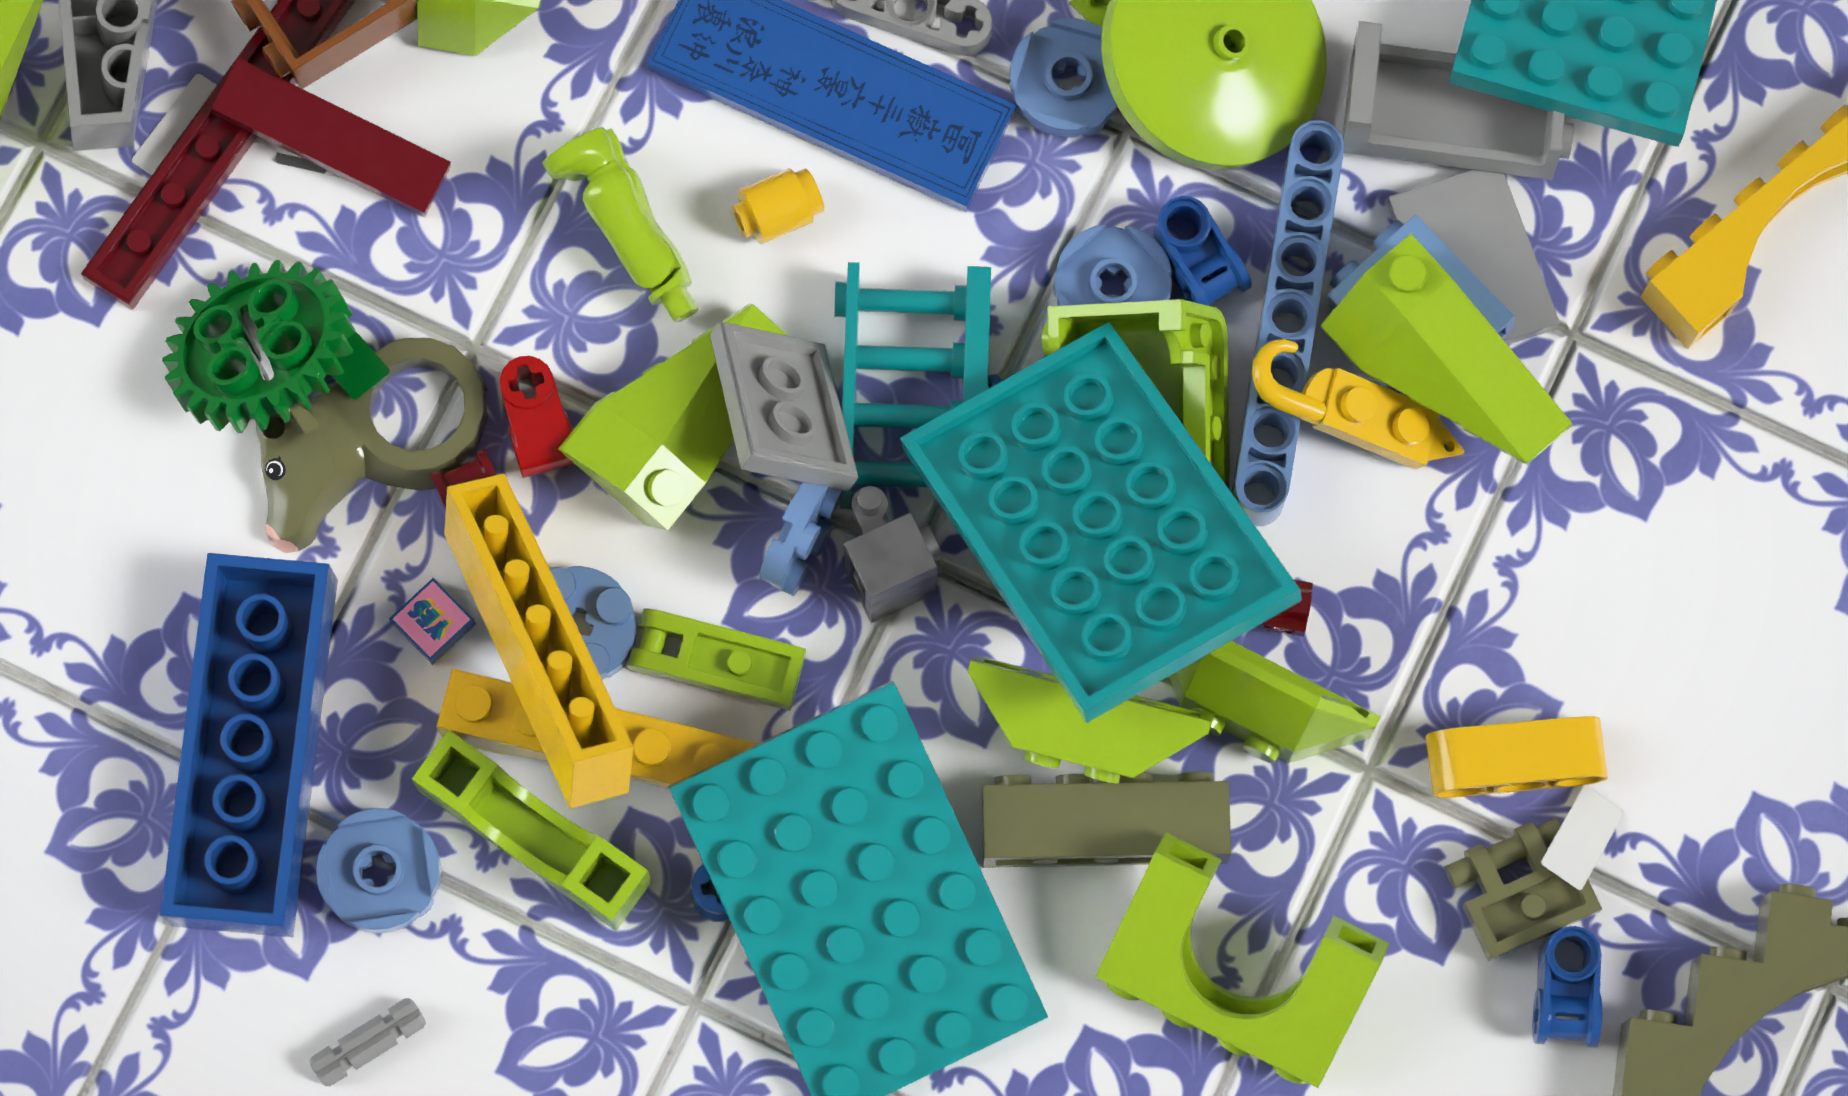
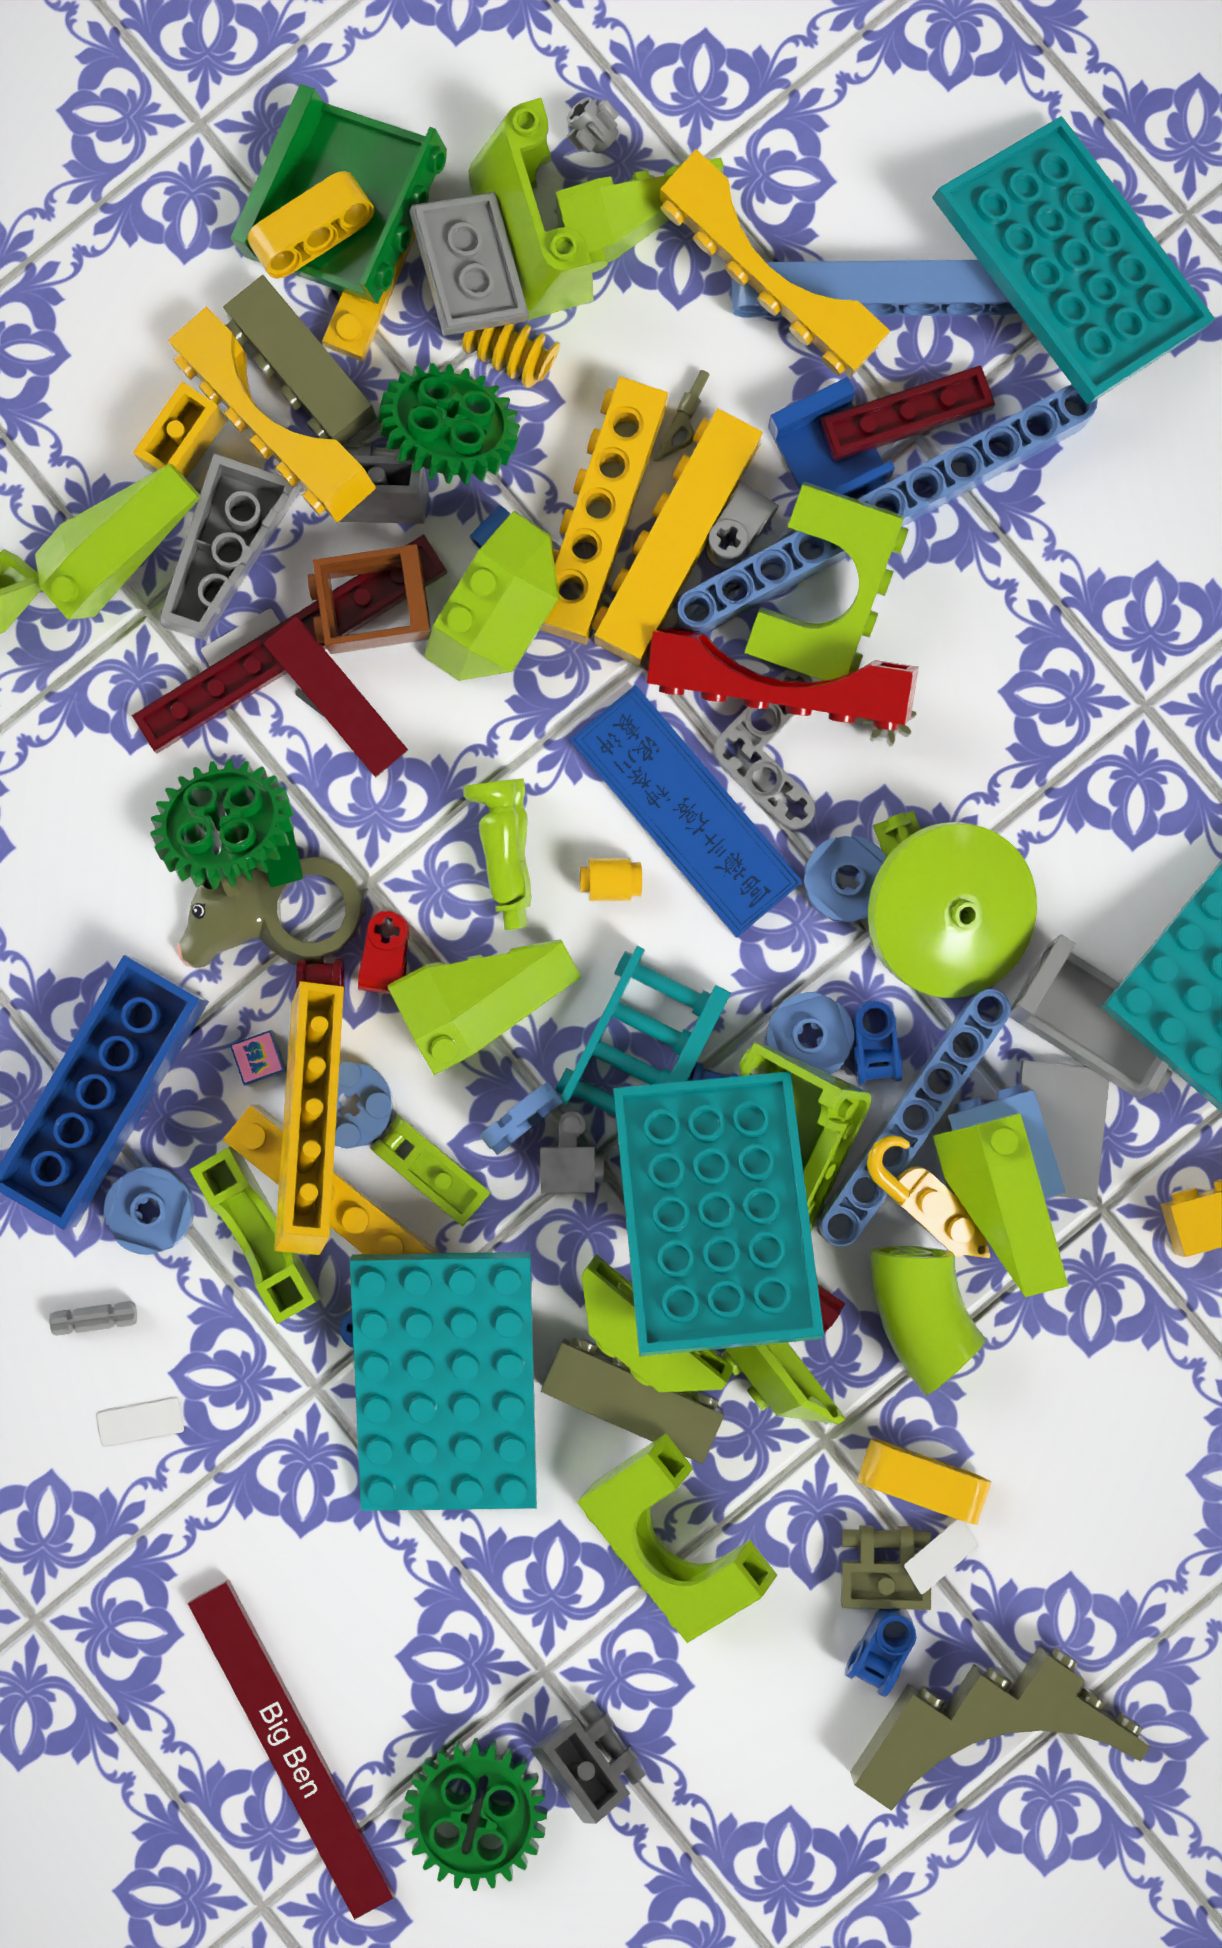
camera: 35 degrees right, 10 degrees up
(783, 406) = (546, 1029): light grey tile -> none
(1413, 544) = (923, 1312): none -> lime brick

